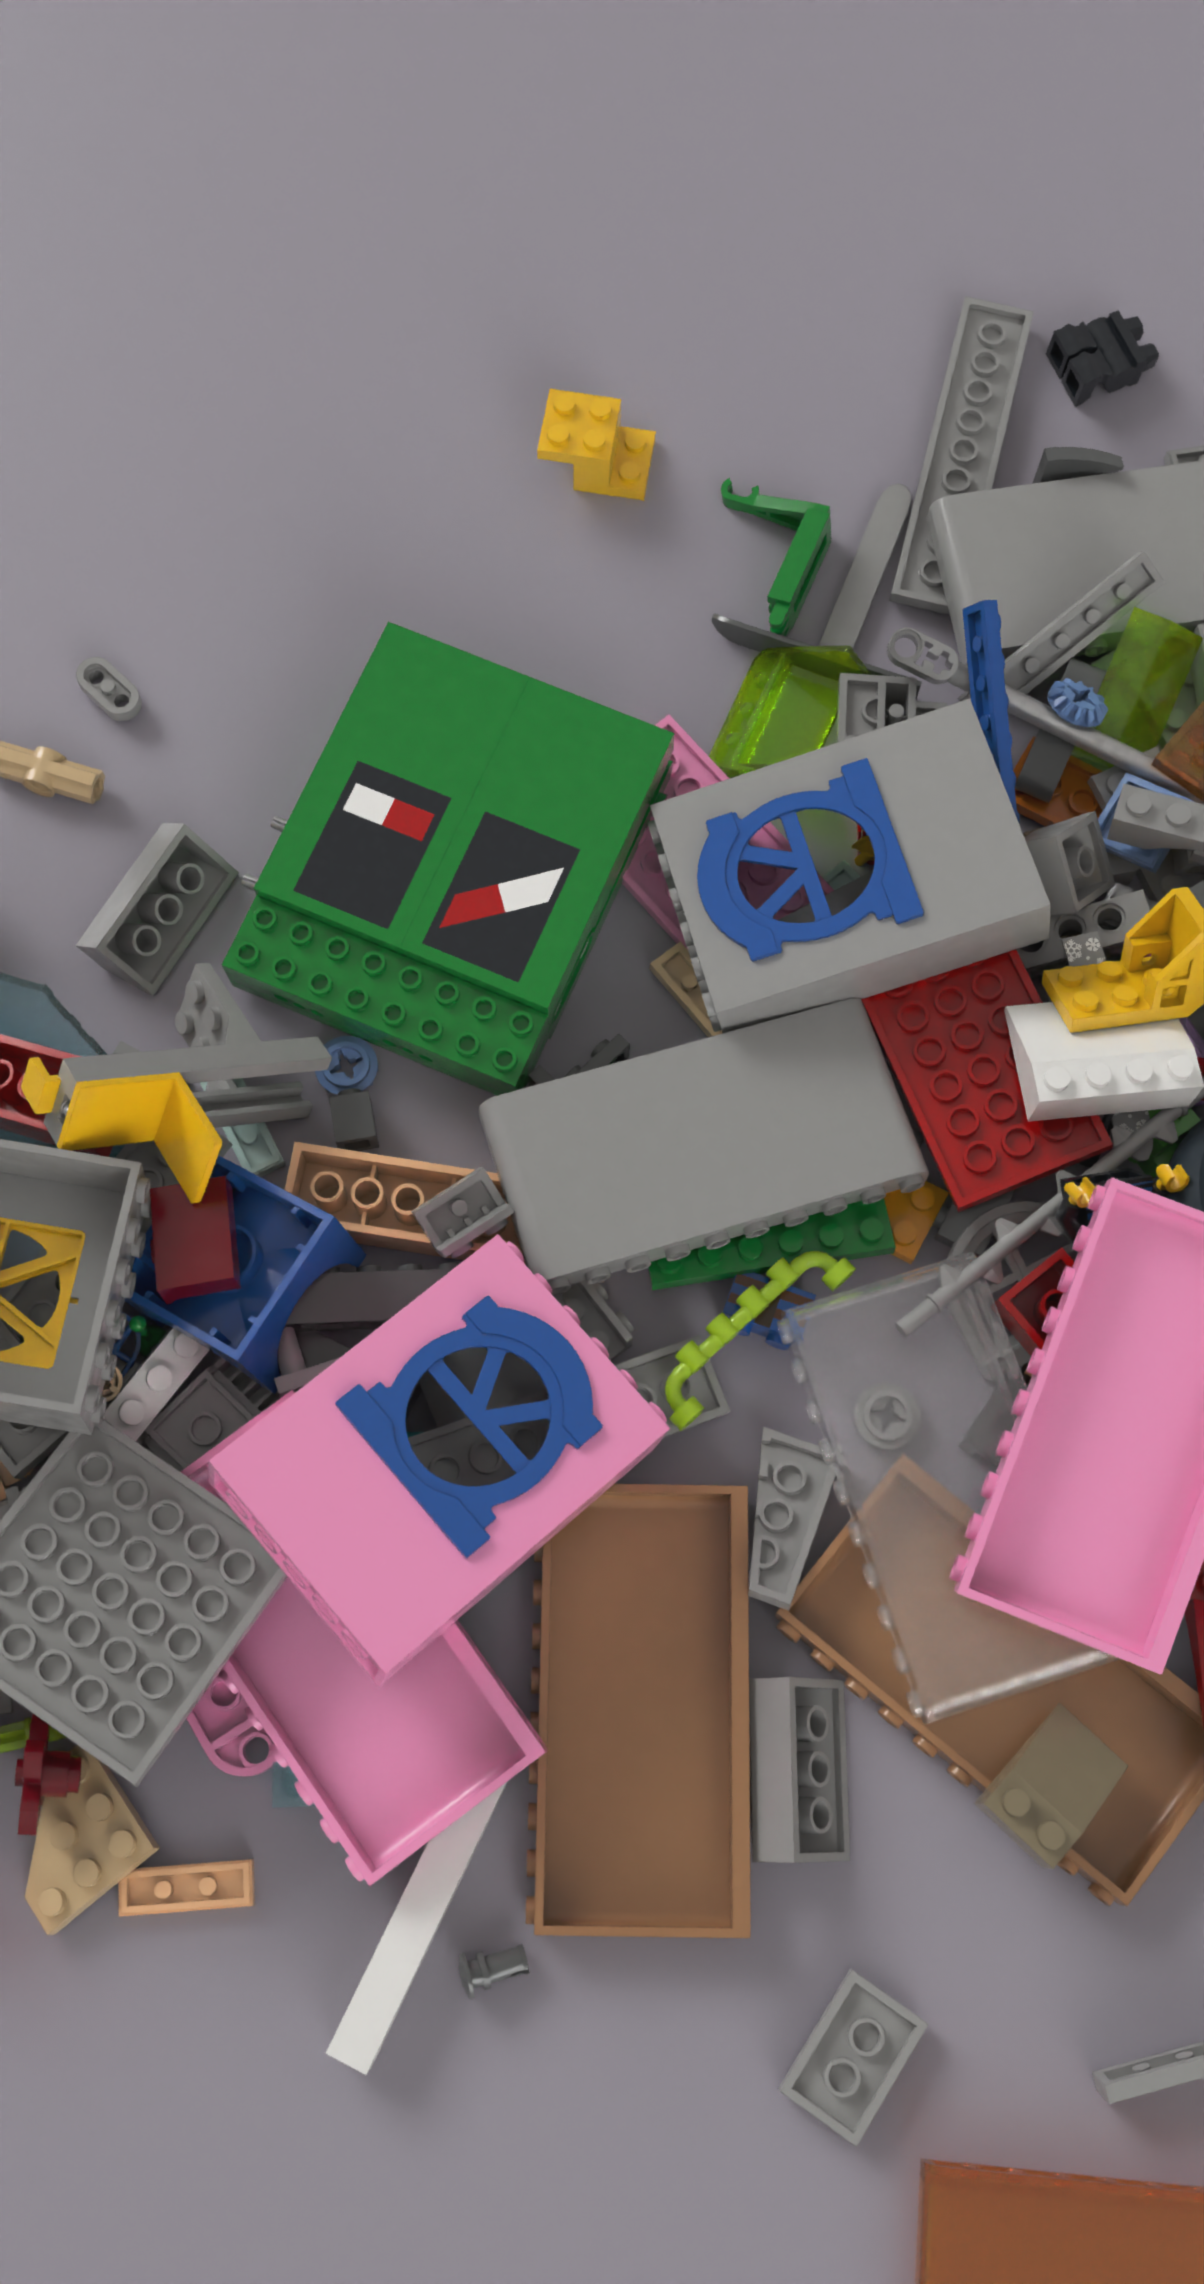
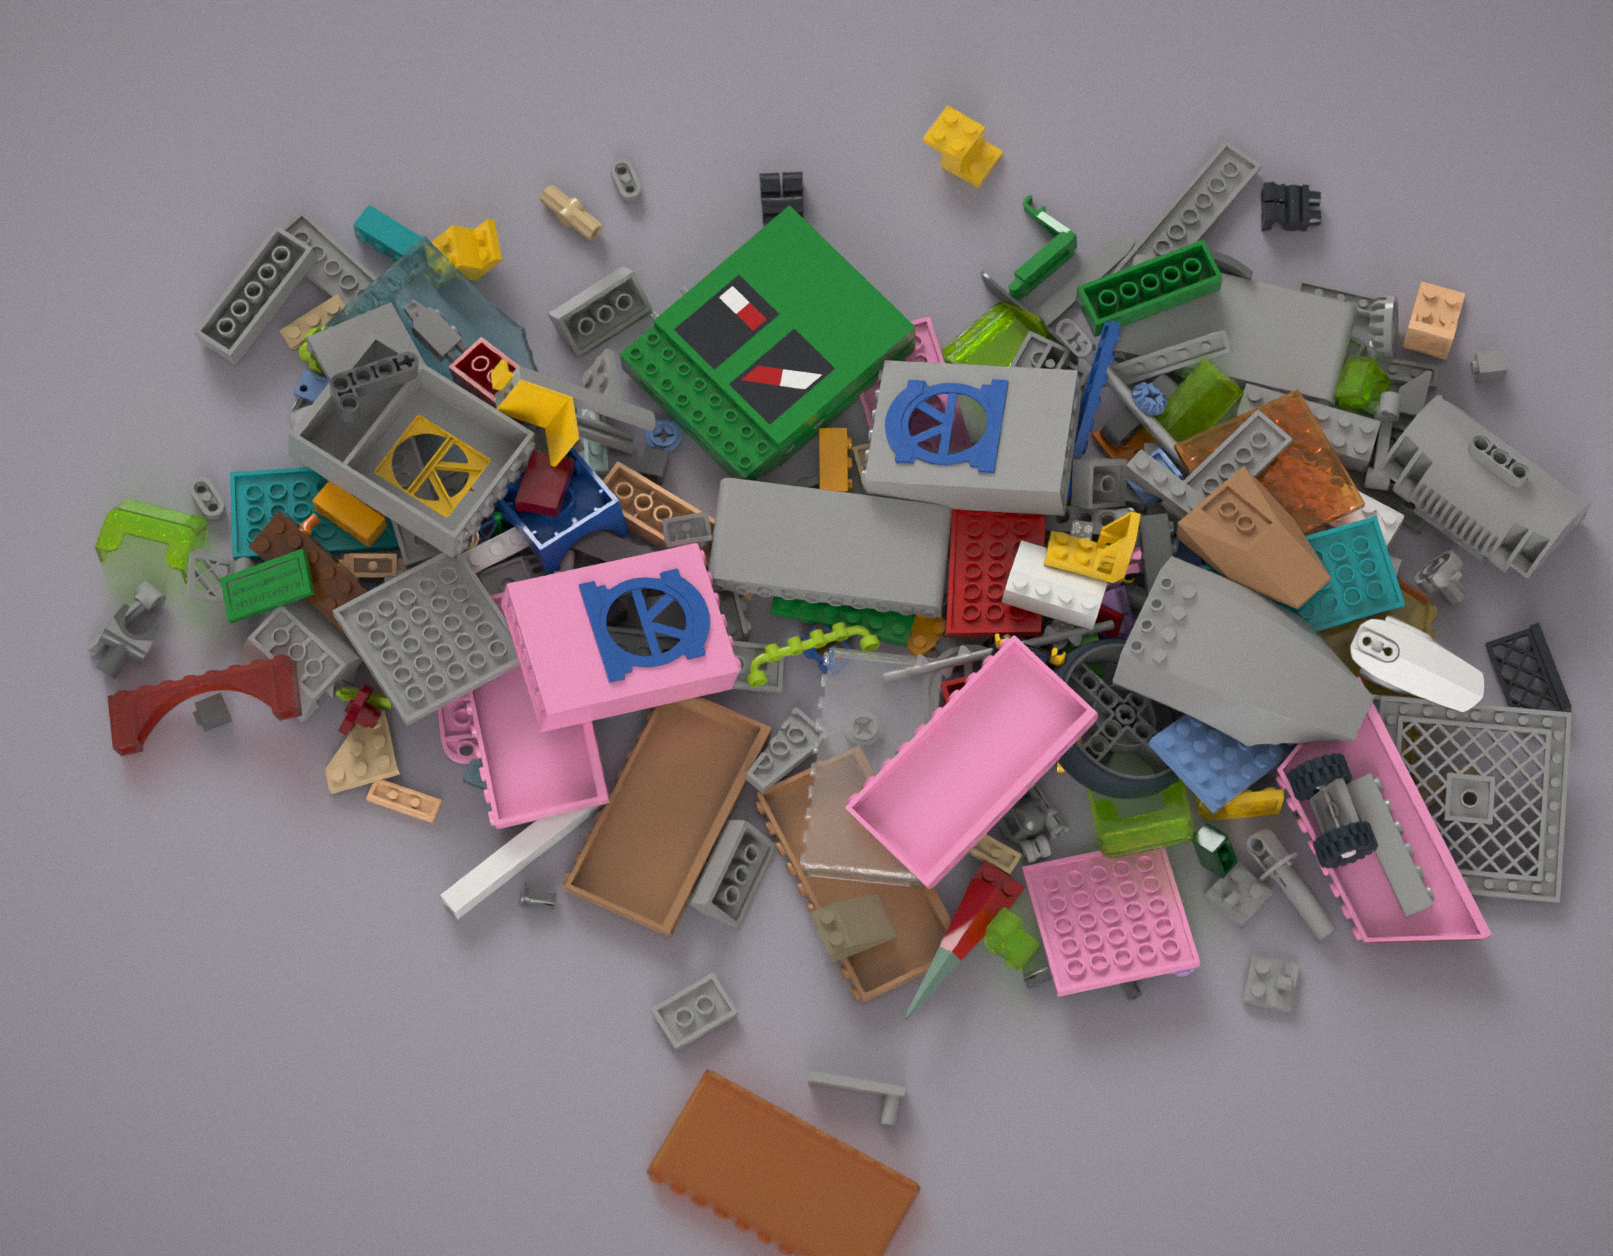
camera: 25 degrees right, 5 degrees down
(353, 637) = (771, 200): none -> black hips
(634, 998) = (834, 460): none -> light orange brick
(989, 536) = (1149, 287): none -> green brick

